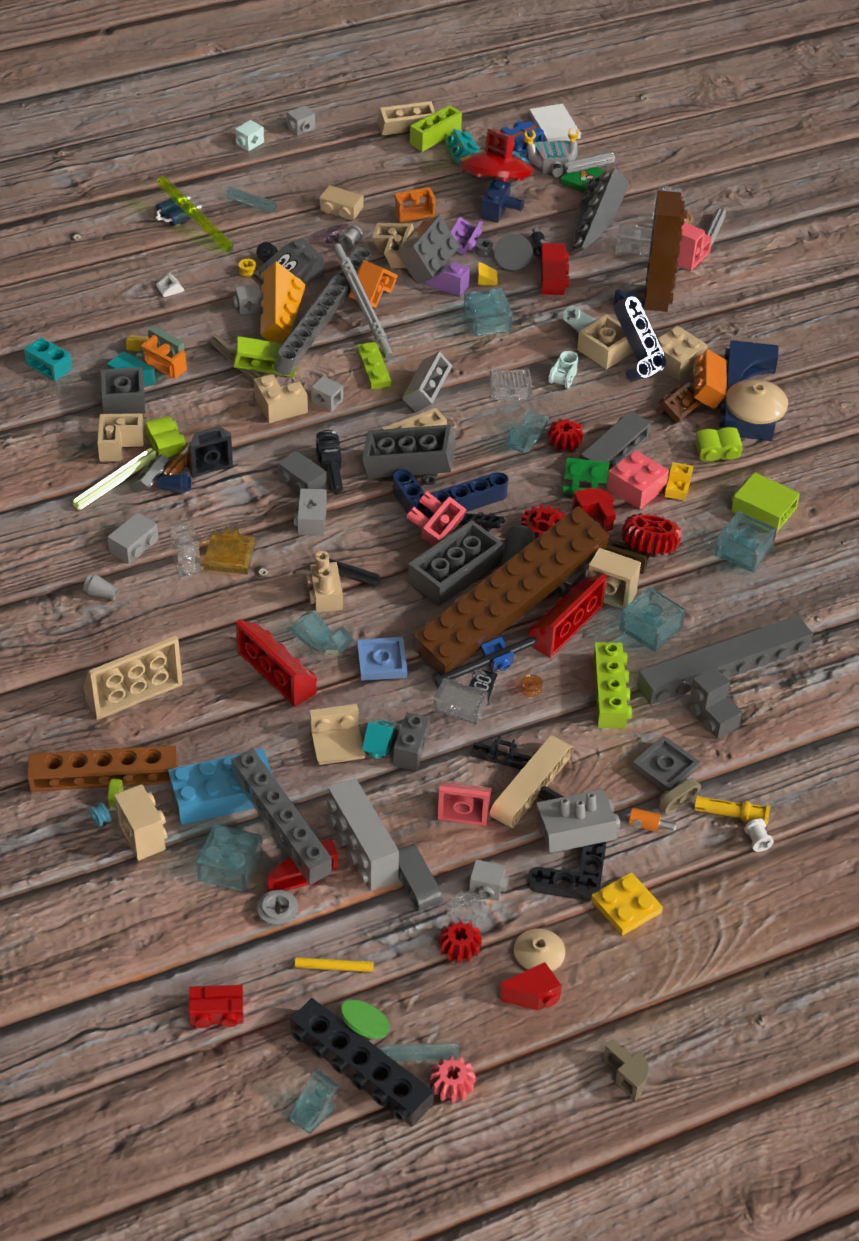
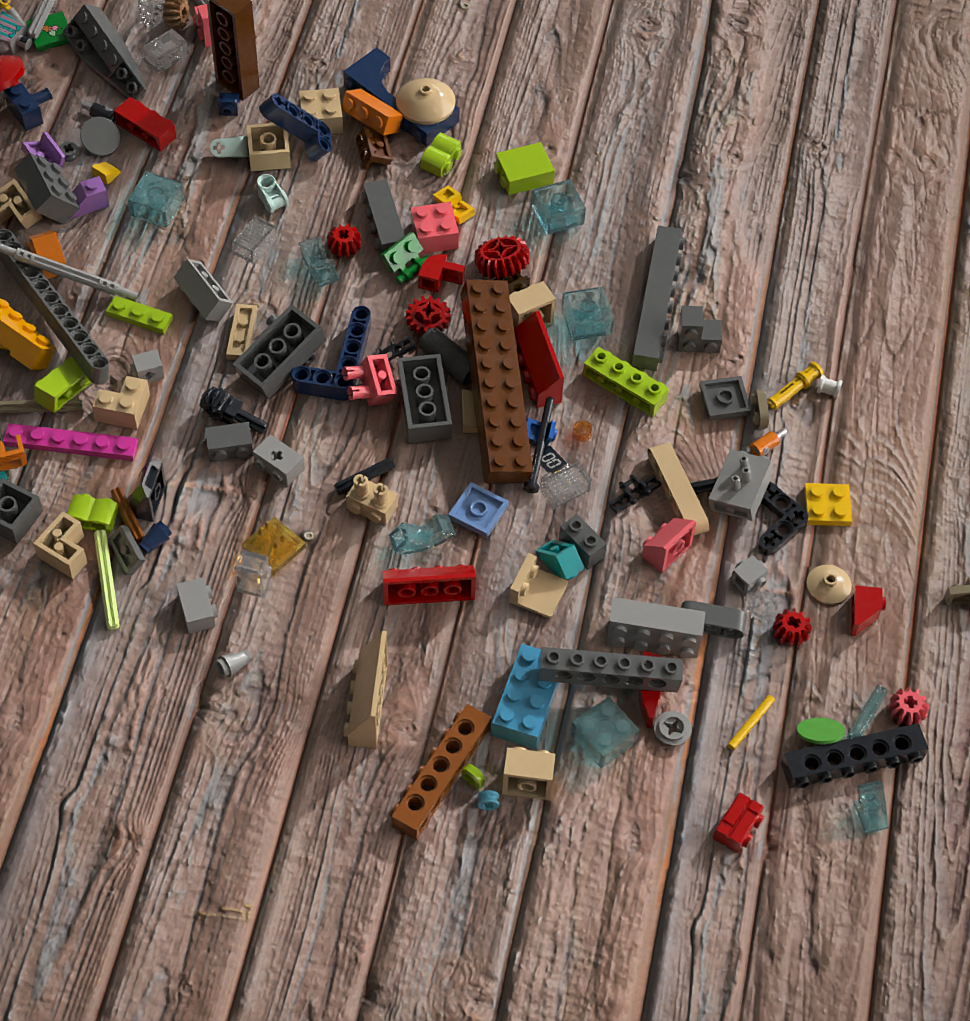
camera: 55 degrees left, 10 degrees up
(221, 394) = (71, 442): none -> dark pink plate

